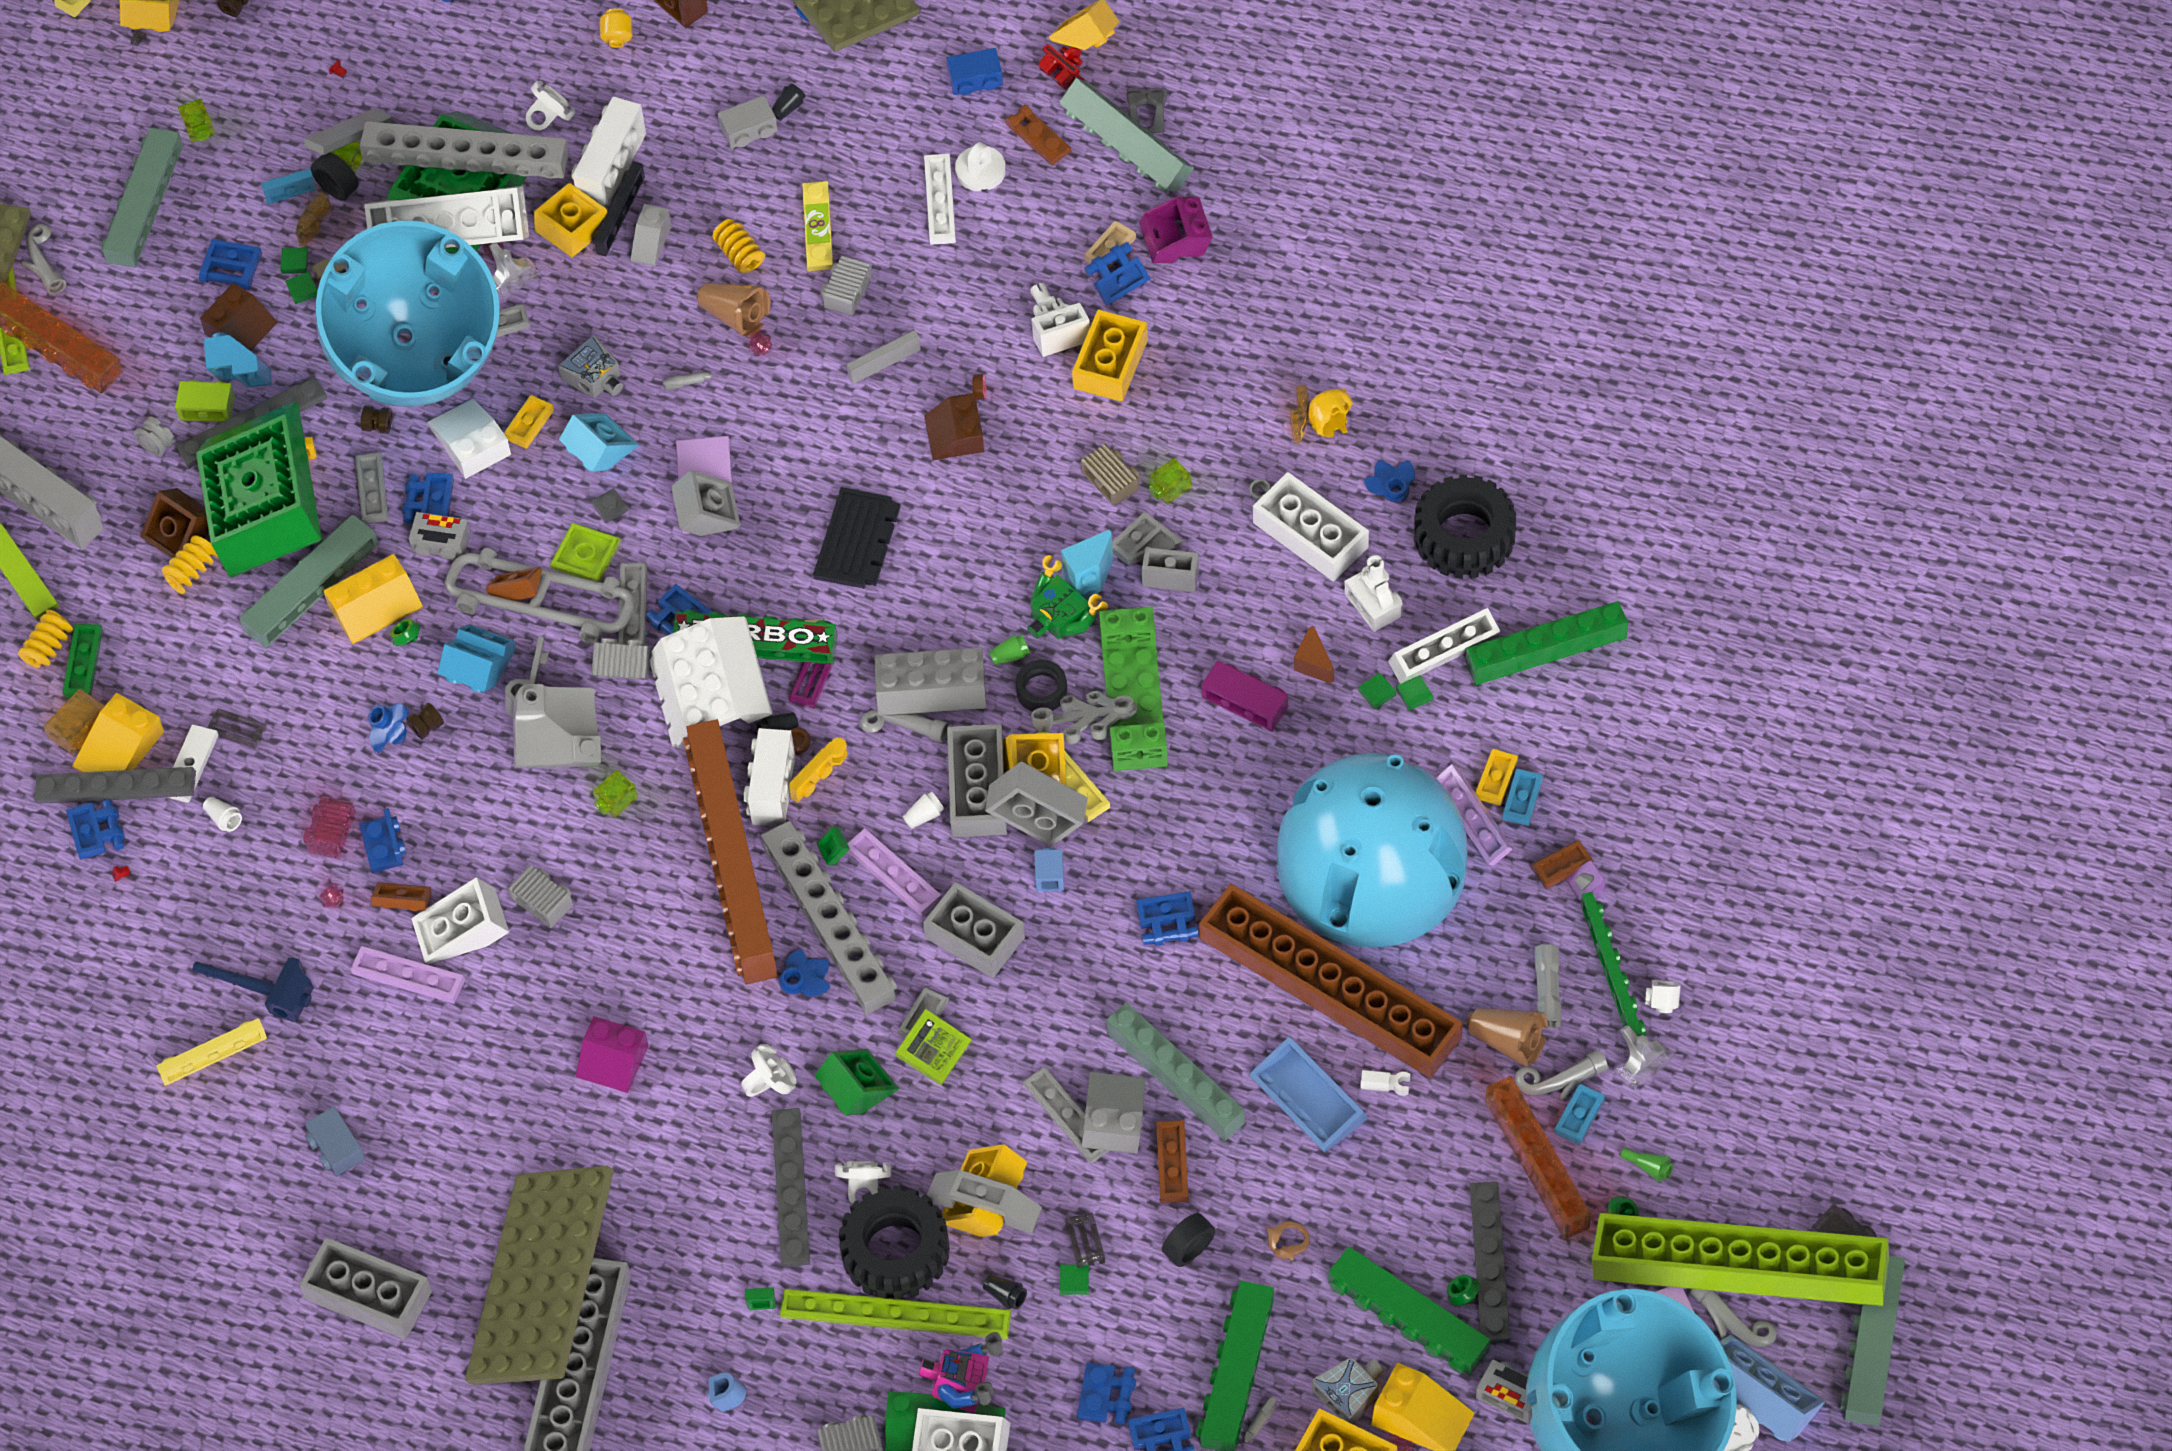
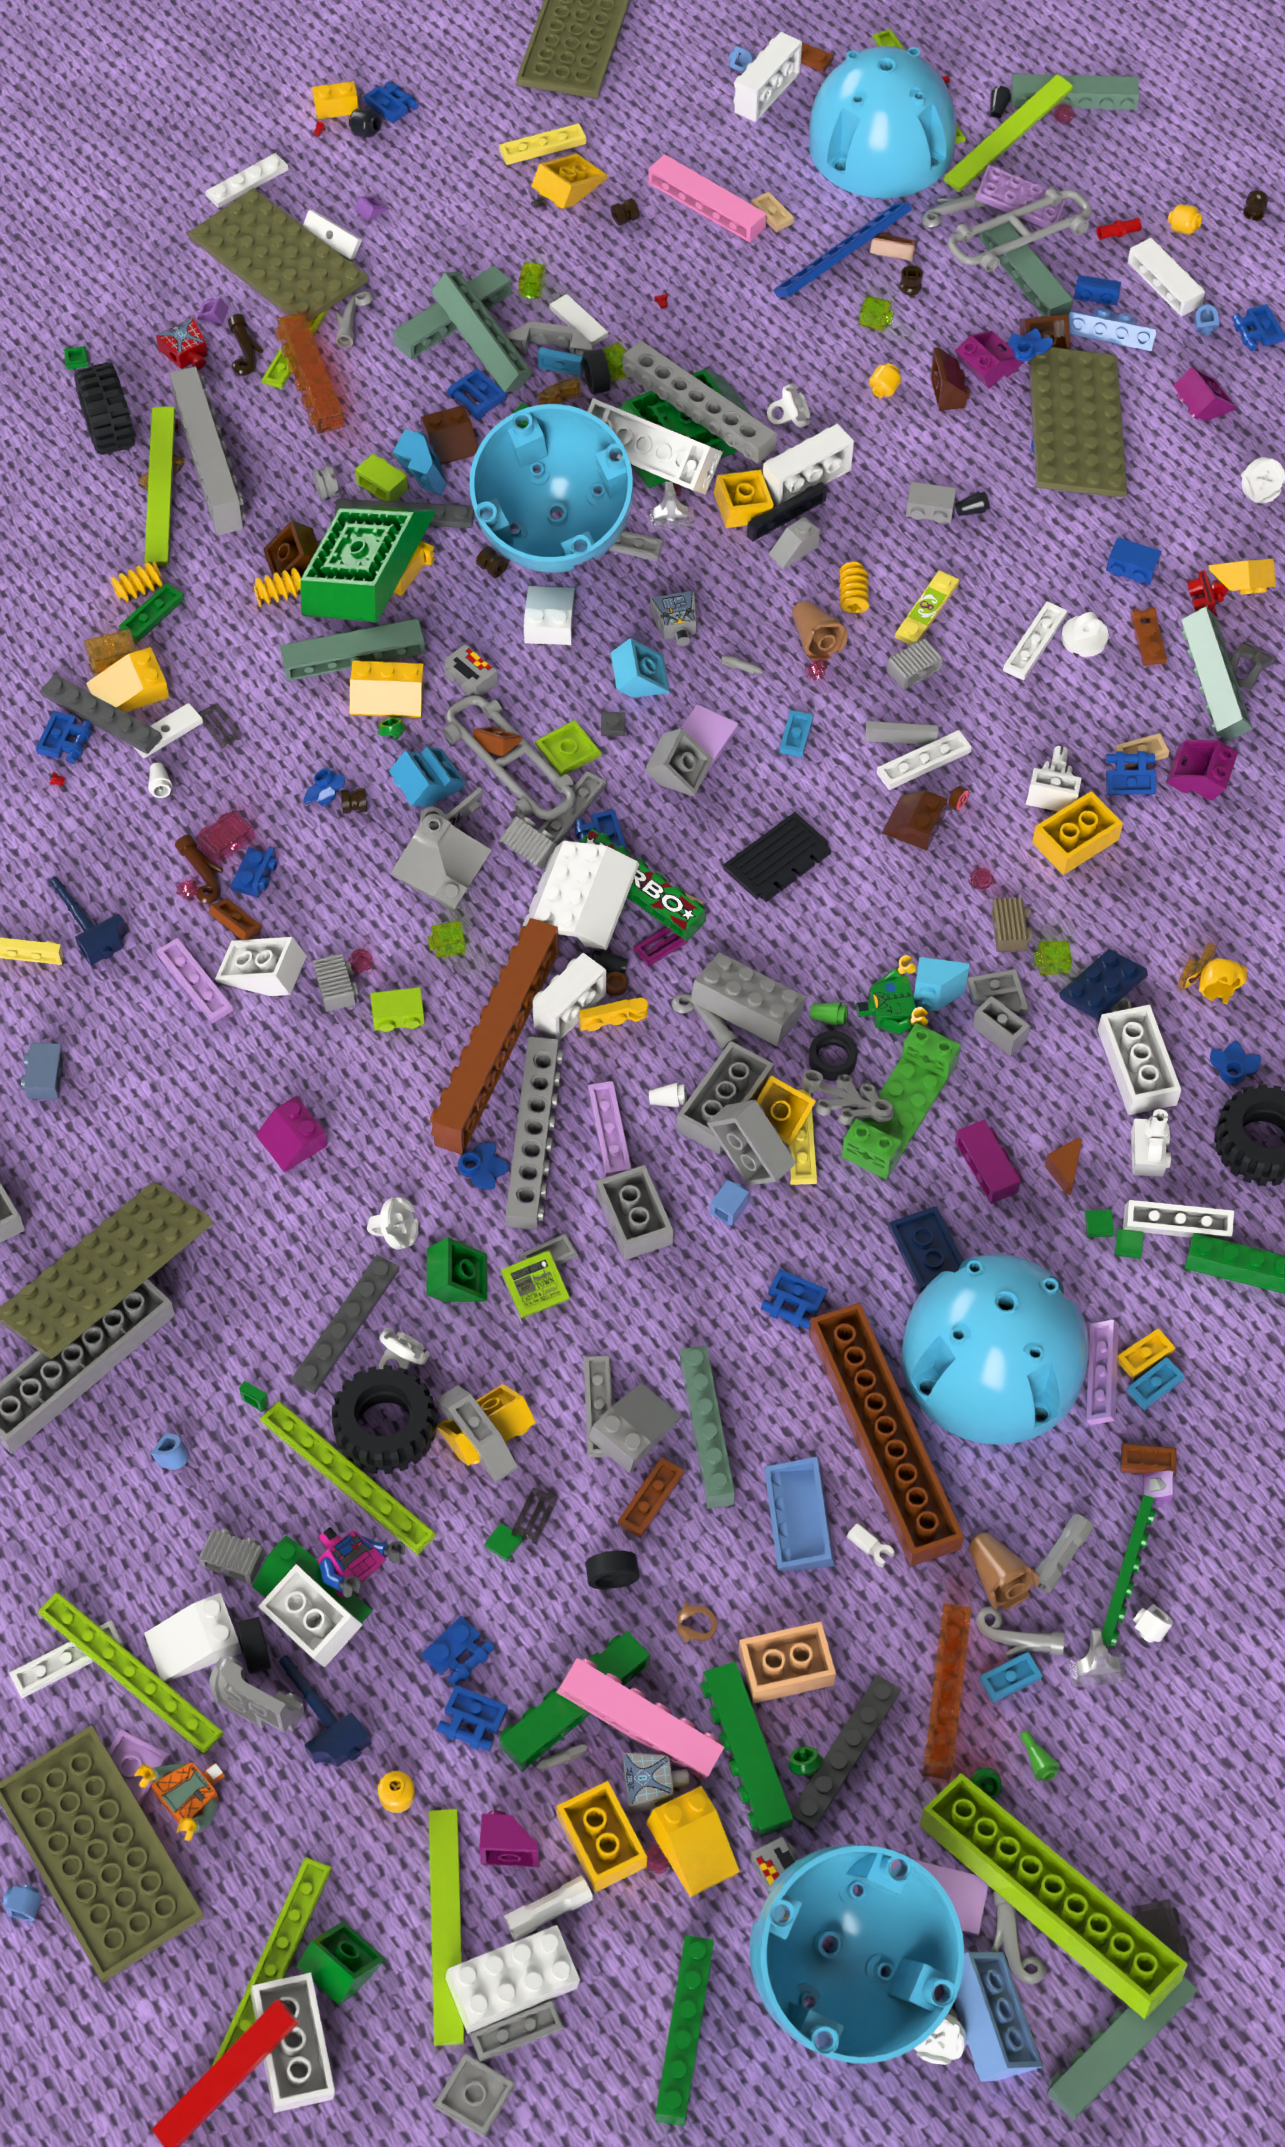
camera: 30 degrees right, 0 degrees up
(194, 200) = (481, 331): none -> sand green brick
(250, 167) = (548, 334): none -> light grey slope
(271, 134) = (577, 317): none -> white tile
(331, 867) = (188, 847): none -> reddish brown plant
(344, 132) = (622, 343): light grey tile -> none
(372, 488) = (451, 610): light grey tile -> none
(436, 497) = (491, 643): blue plate -> none
(528, 421) = (600, 627): yellow plate -> none
(545, 857) = (360, 955): none -> clear pink plate
(618, 885) = (397, 1009): none -> lime brick
(787, 414) = (796, 733): none -> dark azure plate
(833, 846) = (579, 1080): green tile -> none
(921, 370) = (924, 760): none -> white plate
(1006, 1291) = (442, 1516): black cone -> none
(1056, 453) = (981, 884): none -> clear pink plate
(1230, 478) = (1103, 984): none -> dark blue plate
(1247, 803) = (925, 1245): none -> dark blue plate
(1305, 1342) = (640, 1719): none -> bright pink brick
(1390, 1219) = (786, 1662): none -> light nougat brick

